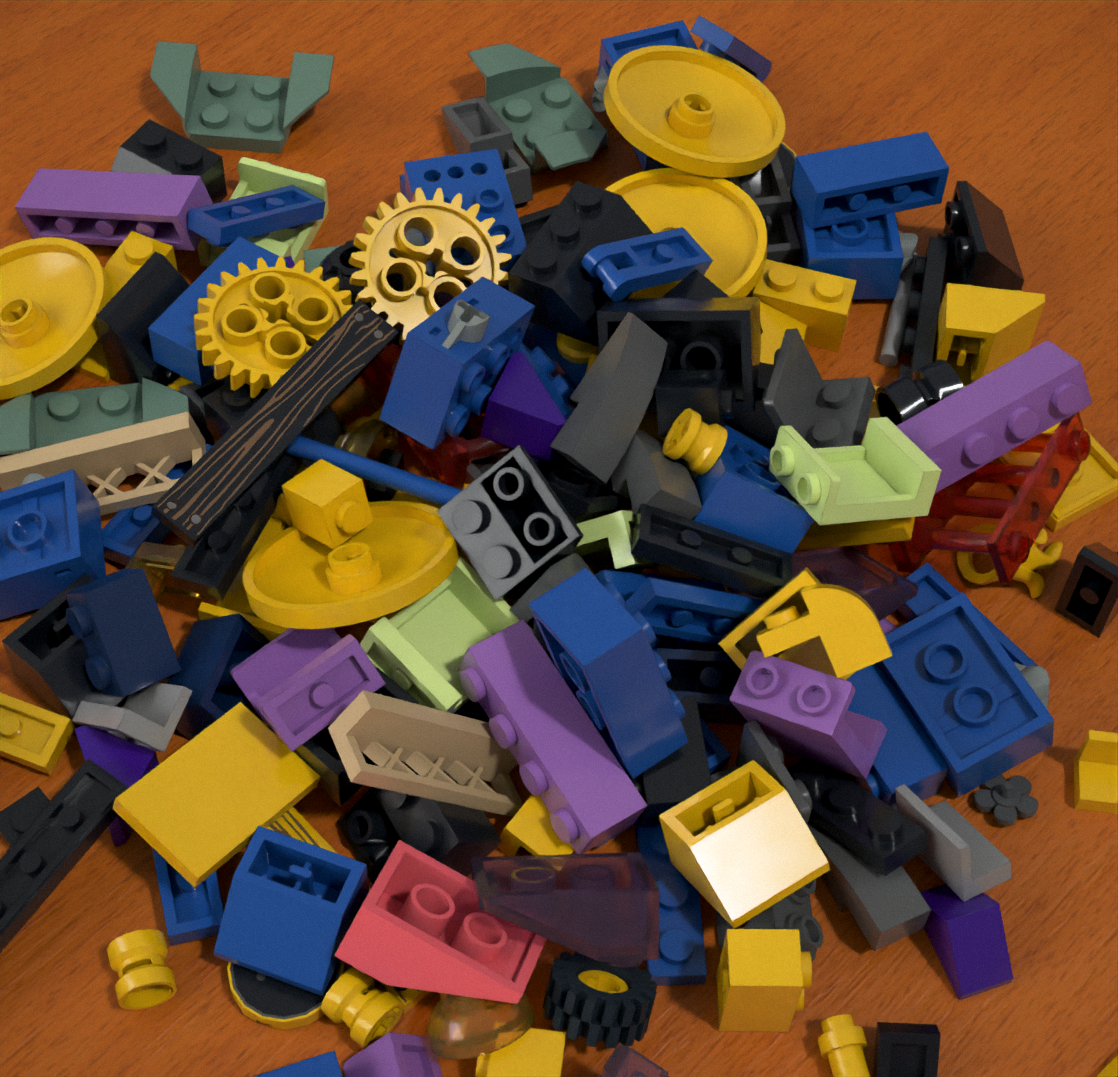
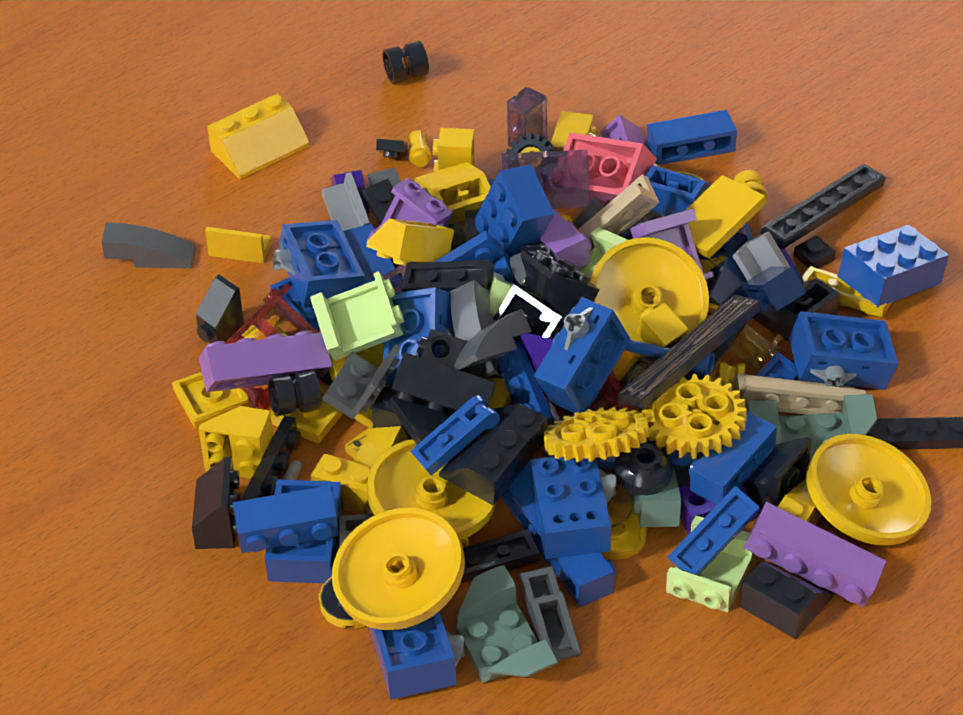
camera: 170 degrees left, 10 degrees down
(234, 108) = (732, 663): sand green piece -> none
(695, 441) = (448, 321): yellow wheel -> none
(730, 48) = (352, 657): blue plate -> none
(840, 619) = (402, 205): yellow brick -> none

